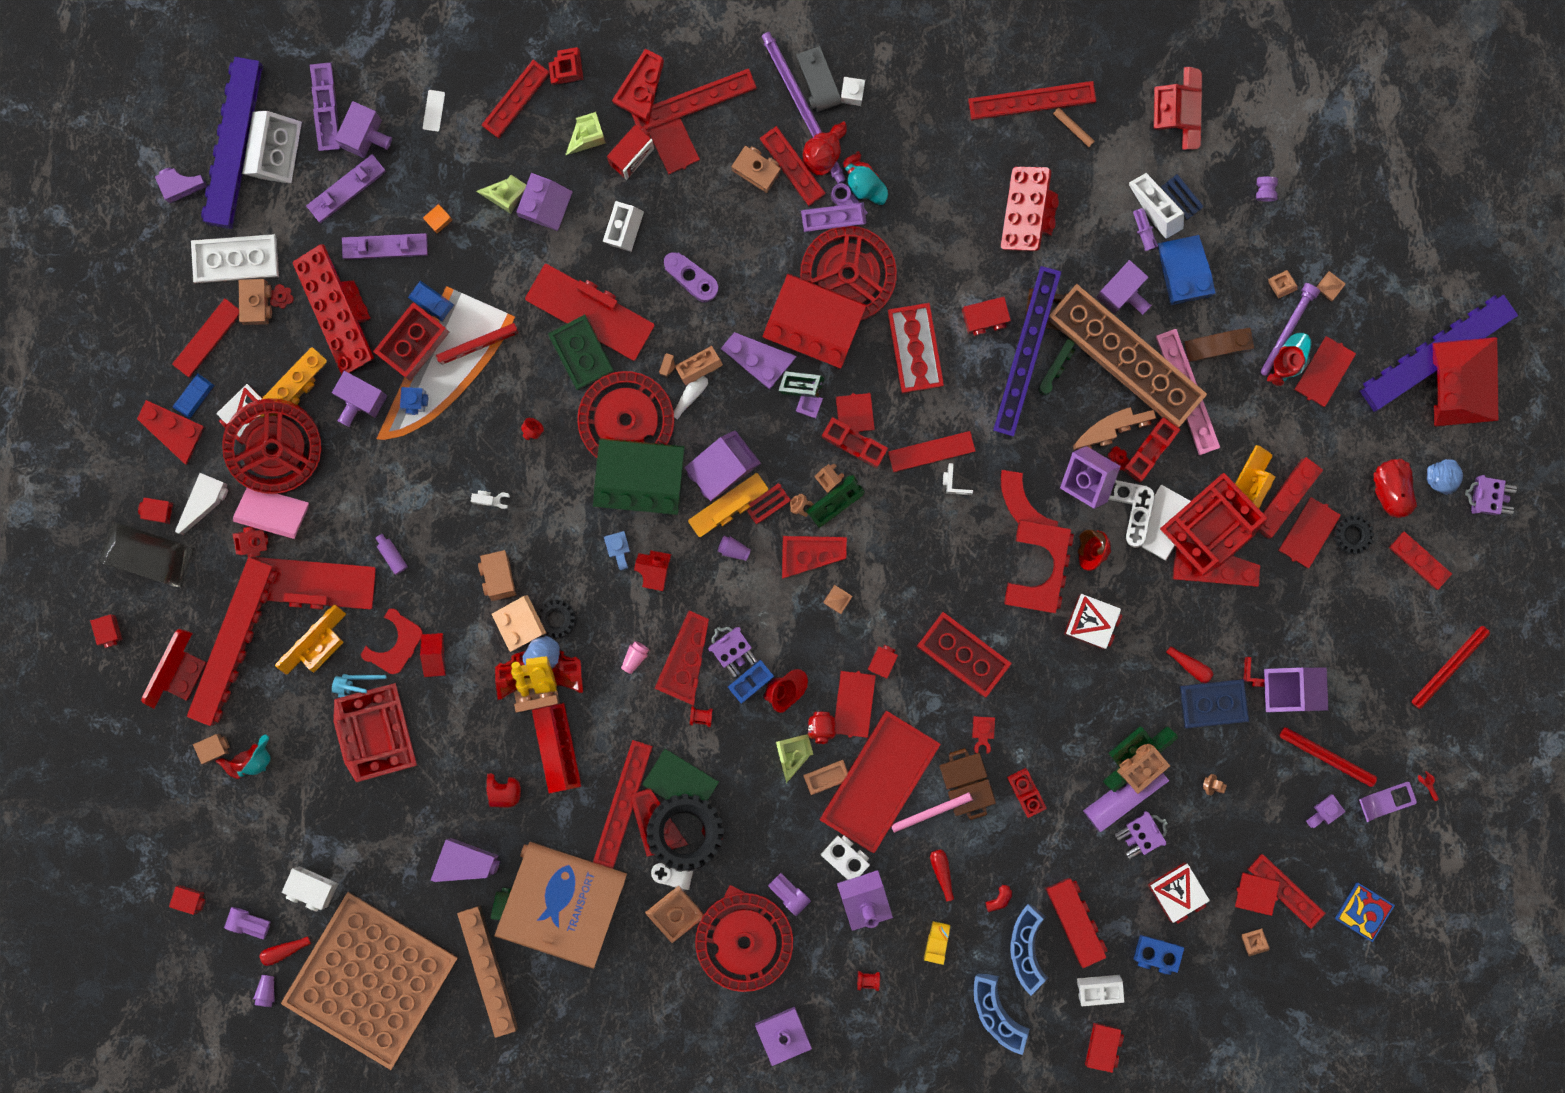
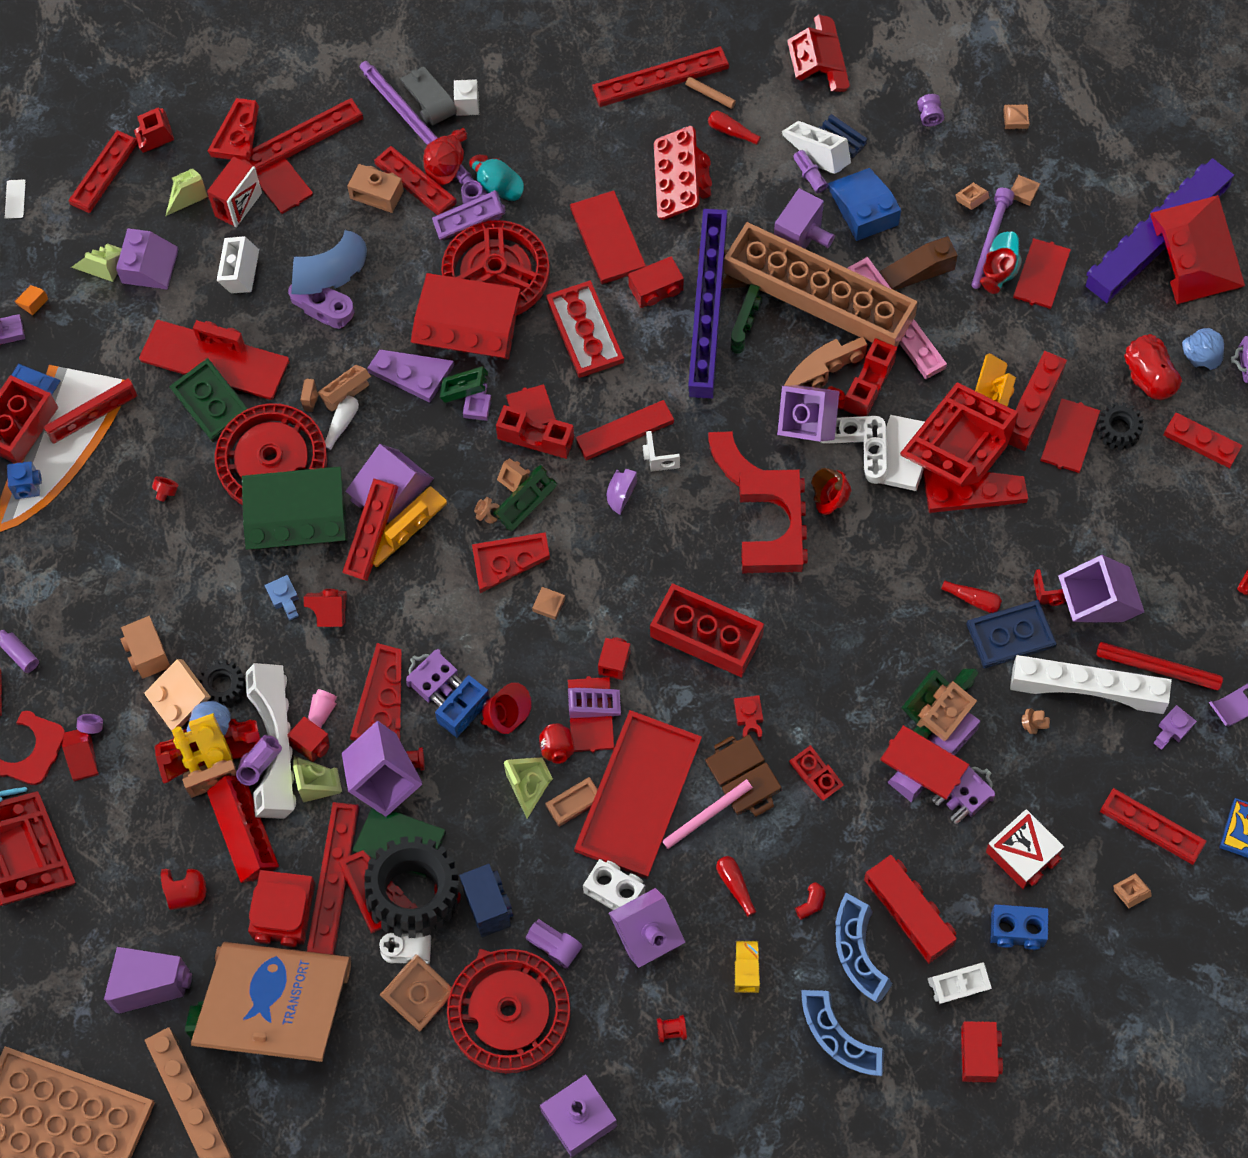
camera: 10 degrees left, 20 degrees down
(443, 633) = (89, 723): none -> medium lavender tile
(484, 498) = (123, 571): white plate -> none
(576, 696) = (258, 759): none -> medium lavender piece
(578, 823) = (281, 908): none -> red brick
(593, 636) = (267, 692): none -> white arch
(620, 715) = (315, 780): none -> yellowish green slope
(621, 684) = (309, 739): none -> red brick
(674, 725) = (379, 769): none -> medium lavender slope
(700, 507) = (370, 529): none -> red tile
(704, 252) = (329, 268): none -> medium blue brick
(732, 548) = (417, 570): medium lavender cone -> none
(741, 852) = (485, 900): none -> dark blue brick
(772, 500) = (462, 503): red tile -> none
(841, 694) = (594, 711): none -> medium lavender slope
(916, 507) = (621, 489): none -> medium lavender brick
(952, 258) = (607, 236): none -> red tile
(1083, 167) = (729, 126): none -> red piece
(1093, 622) = (849, 569): piece -> none
(1115, 807) = (924, 762): none -> red piece
(1257, 894) = (1119, 834): red piece -> none
(1267, 764) = (1132, 689): none -> white arch
(1342, 209) = (1016, 116): none -> nougat tile

